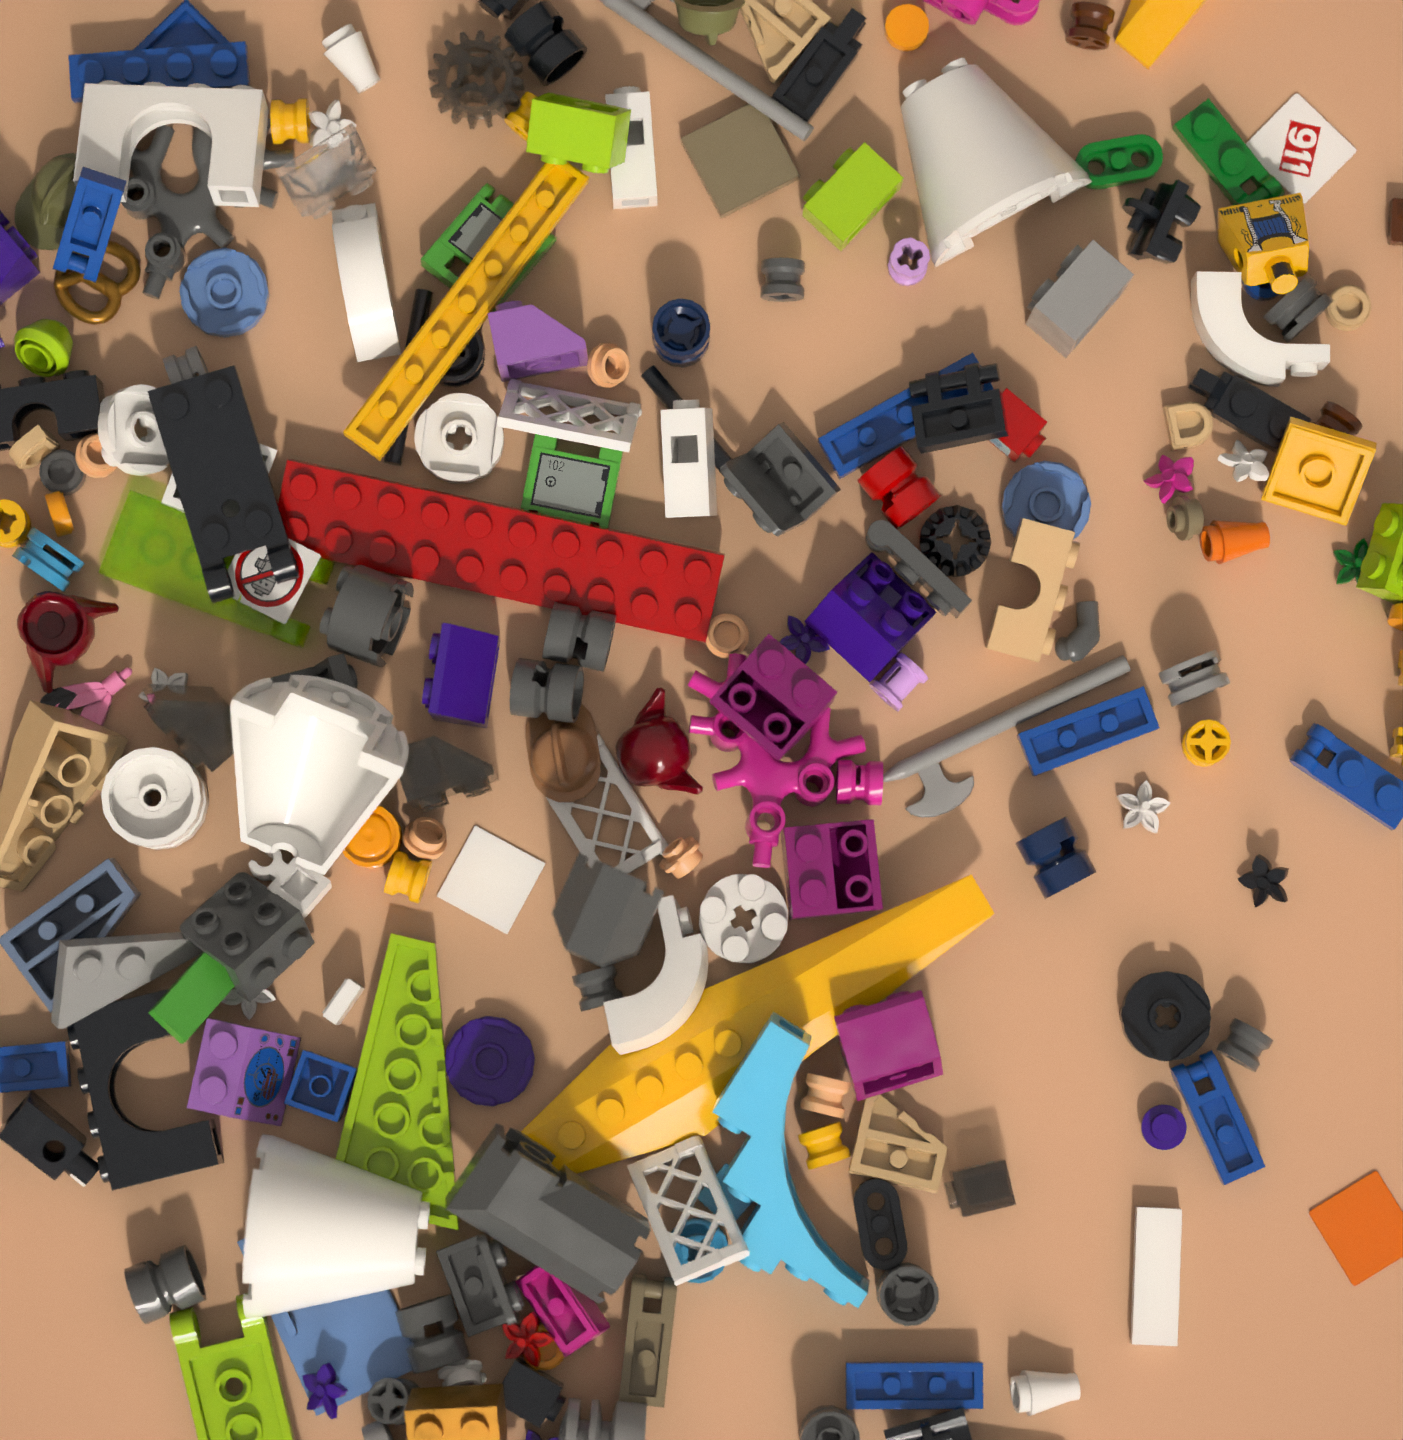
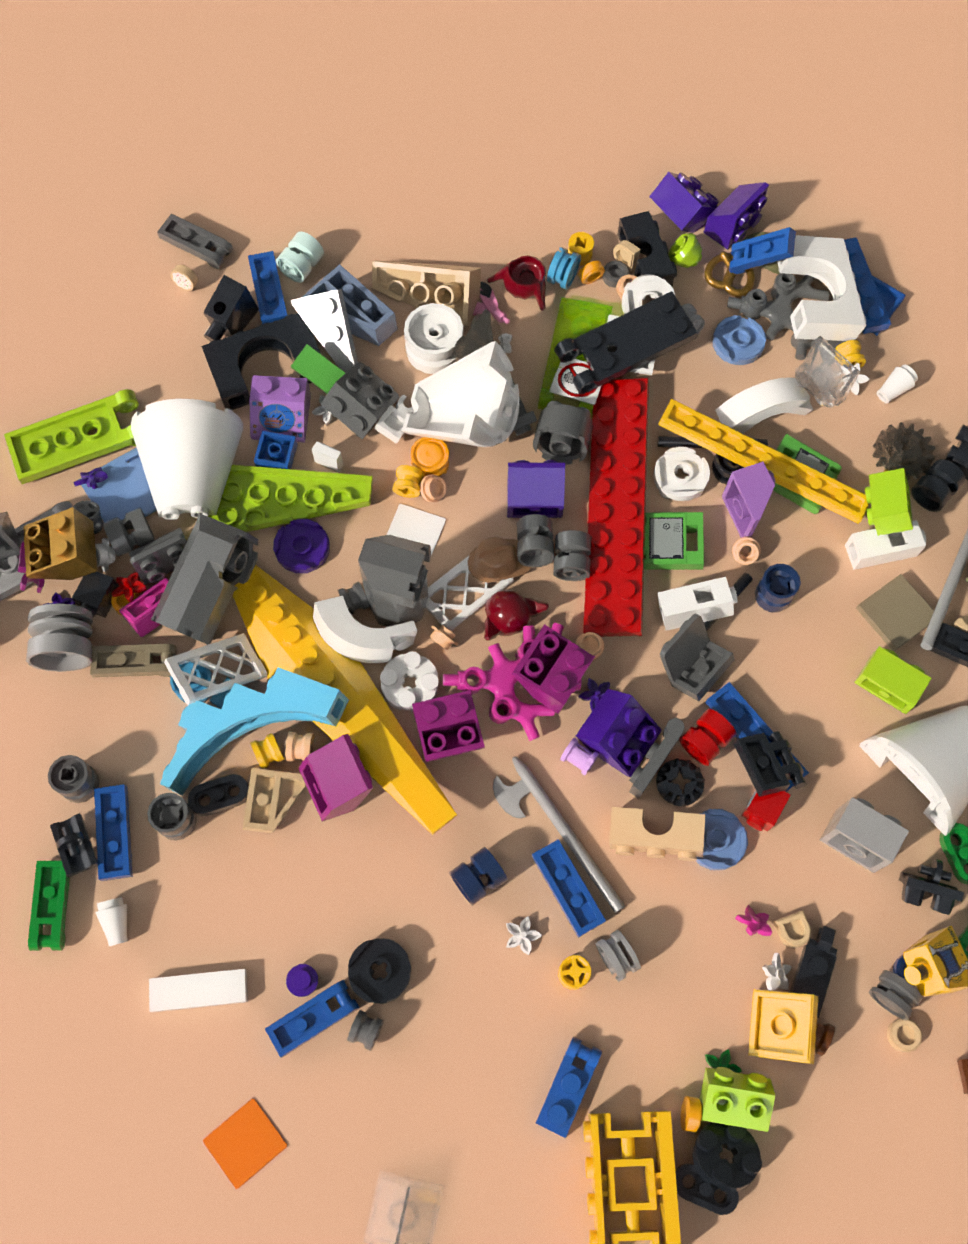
camera: 85 degrees right, 15 degrees down
(159, 1286) = (148, 382): dark grey wheel -> none
(440, 771) = (473, 483): clear smoke slope -> none
(553, 425) = (714, 565): white window -> none
(782, 279) = (826, 646): dark grey wheel -> none
(870, 782) = (508, 740): dark pink wheel -> none
(913, 249) = (855, 716): lavender bush -> none
(979, 1188) = (247, 857): clear smoke brick -> none
(1084, 637) = (632, 877): dark grey arm -> none
(1185, 517) = (729, 935): dark tan plate -> none
(1230, 539) = (721, 972): orange cone -> none
(1236, 345) = (857, 957): white arch -> none
(1265, 881) = (484, 1030): black plant -> none

